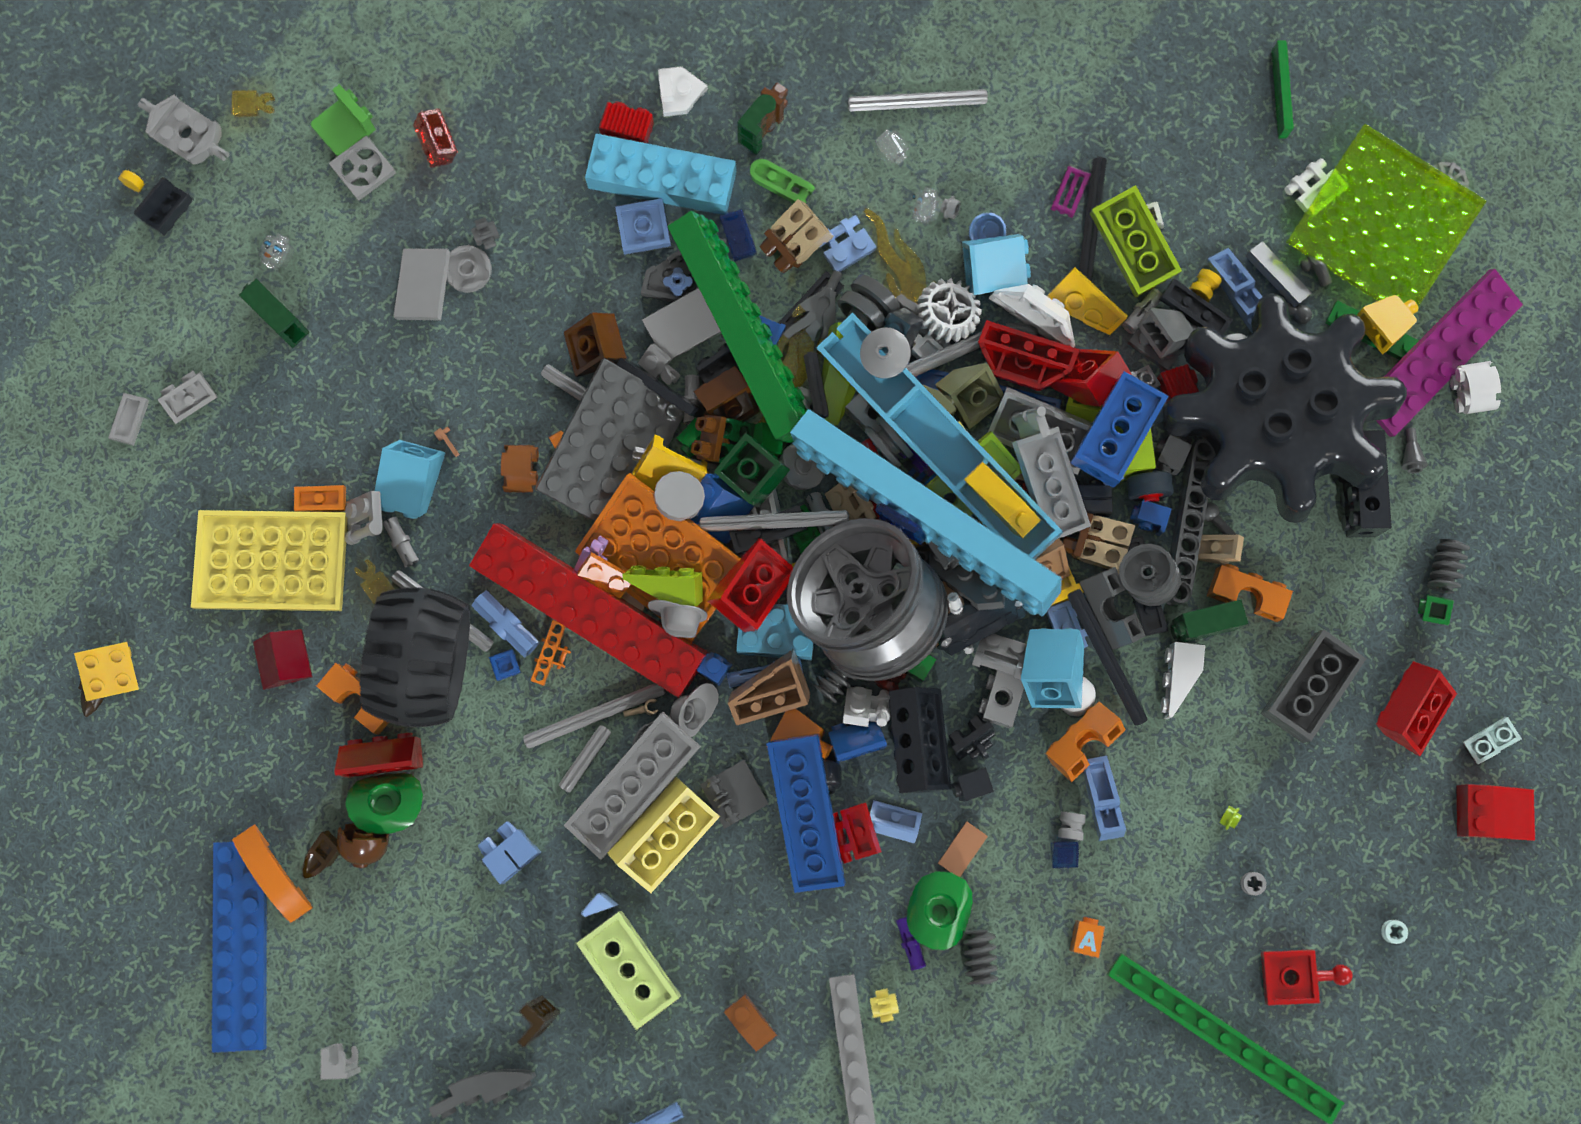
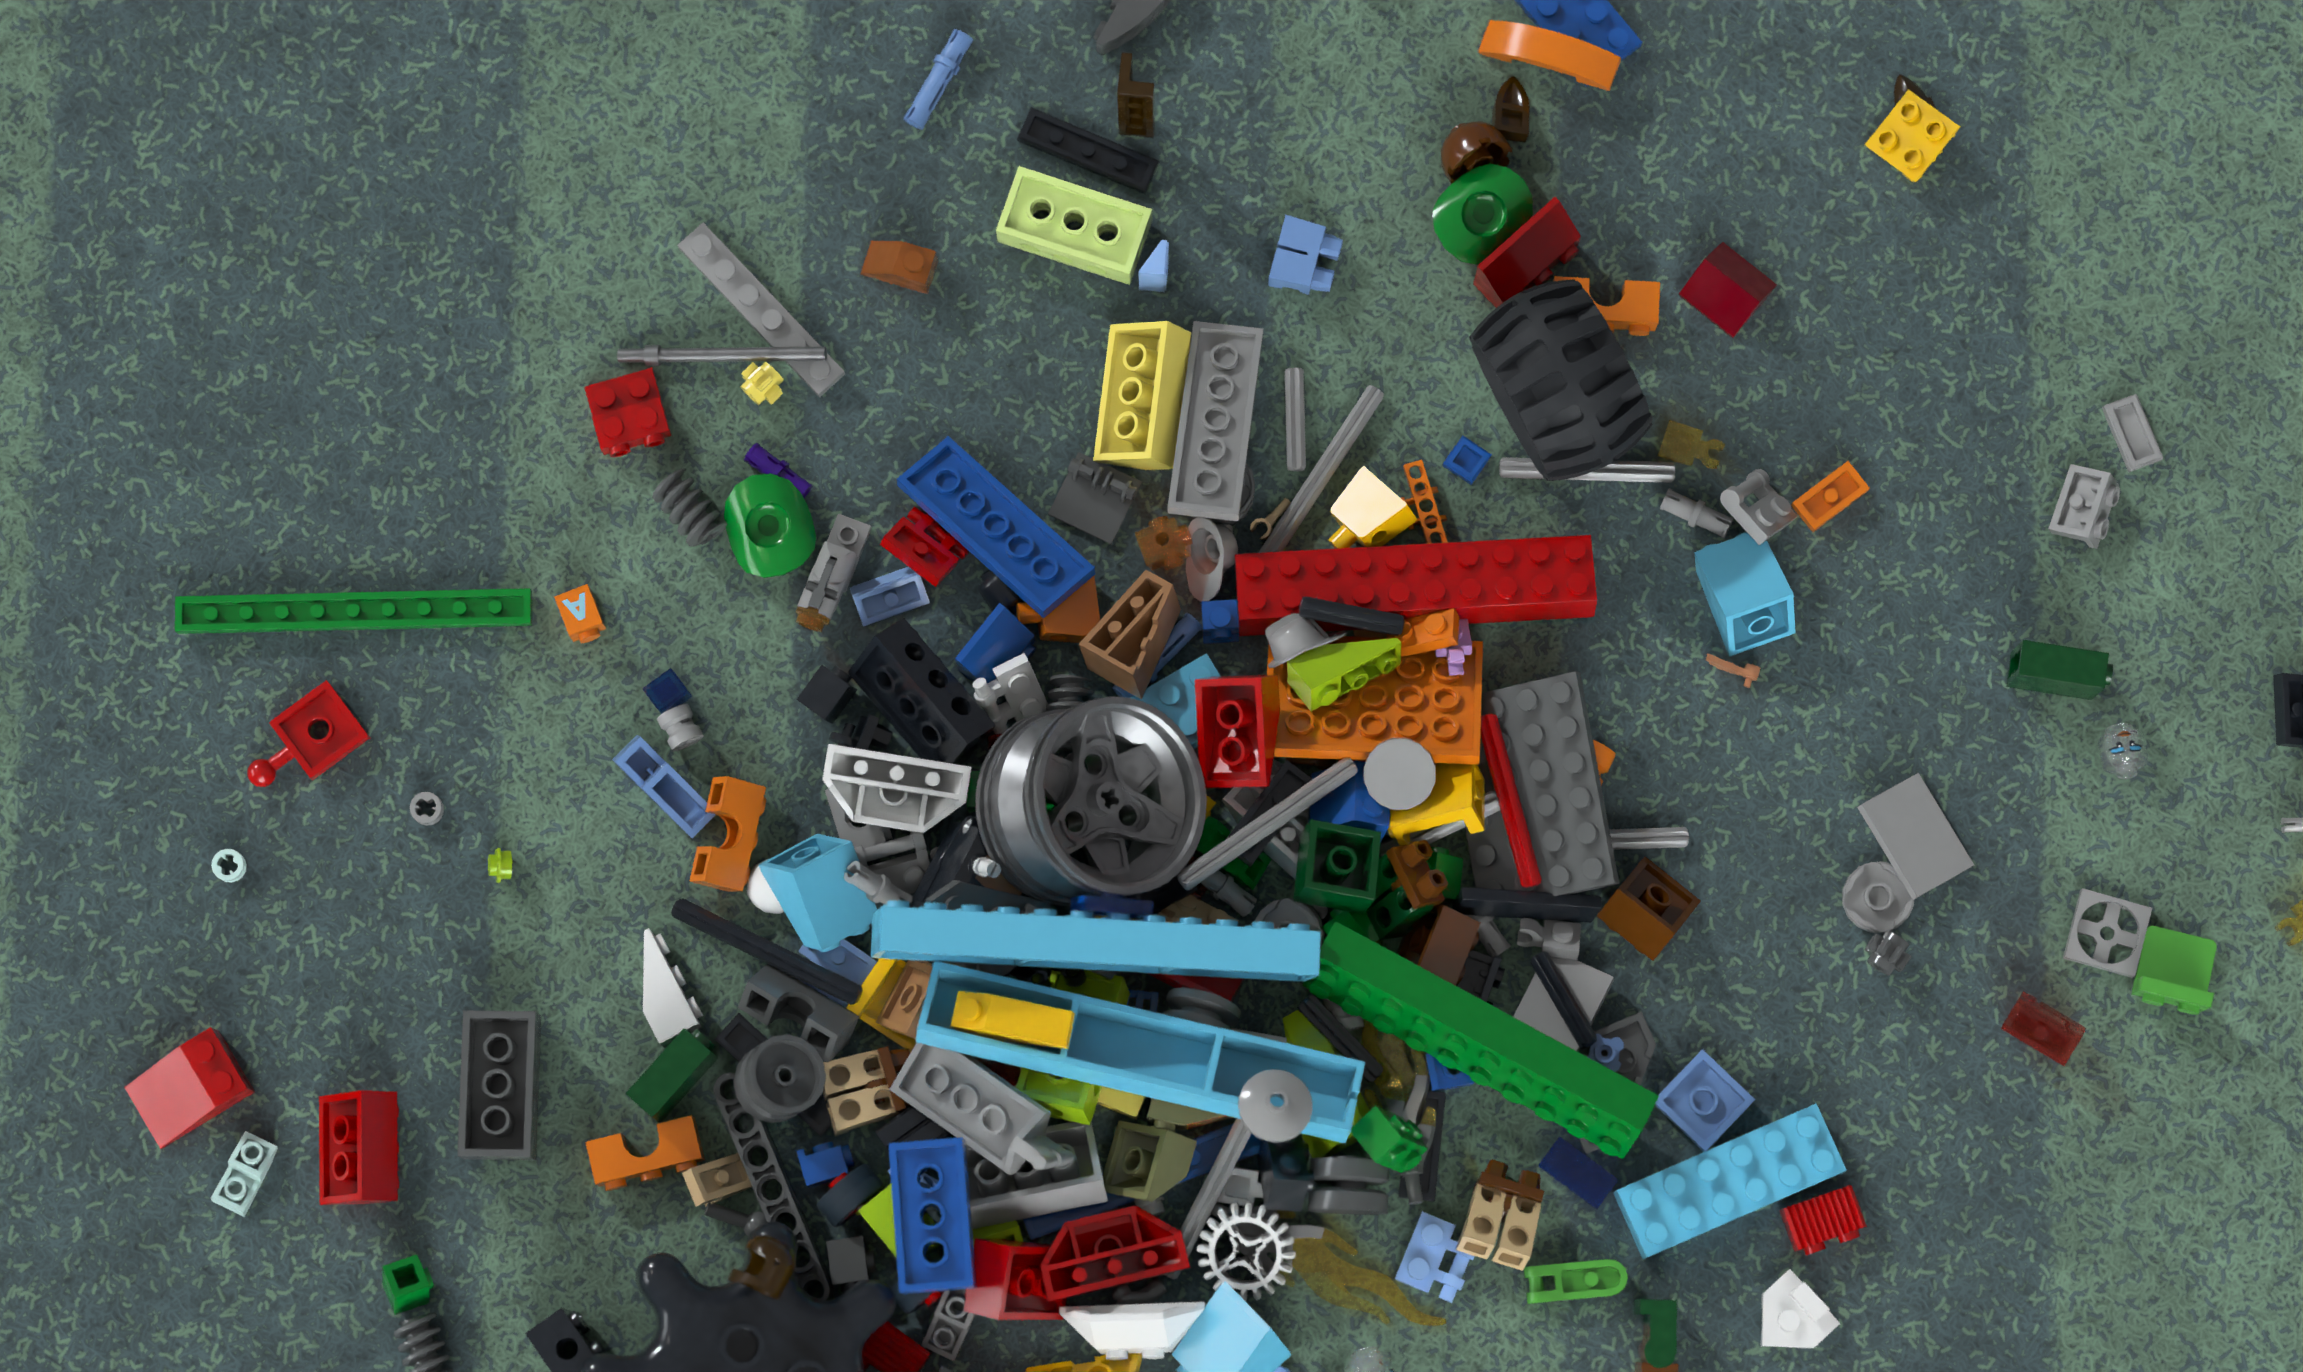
camera: 145 degrees right, 0 degrees up
(269, 560) = (1831, 386): light yellow plate -> none
(505, 623) = (1501, 504): medium blue piece -> none
(518, 468) = (1627, 697): dark orange cylinder -> none
(584, 669) = (1369, 513): none -> torso
(586, 1014) = (1088, 150): none -> black tile
(628, 445) = (1509, 801): none -> red axle
(639, 609) = (1351, 616): none -> black axle
(678, 323) = (1563, 1000): none -> black axle
(723, 735) = (1152, 540): none -> clear orange brick
(830, 305) = (1390, 1139): none -> green brick
(920, 856) = (832, 572): none -> light grey plate
(936, 1071) = (654, 354): none -> flat silver bar
(962, 849) = (785, 633): nougat tile -> none
(972, 695) = (894, 788): none -> white wedge
(977, 1046) = (628, 412): none -> red plate
(1021, 643) = (877, 887): none -> light grey pin
(1235, 456) = (768, 1267): none -> dark brown helmet

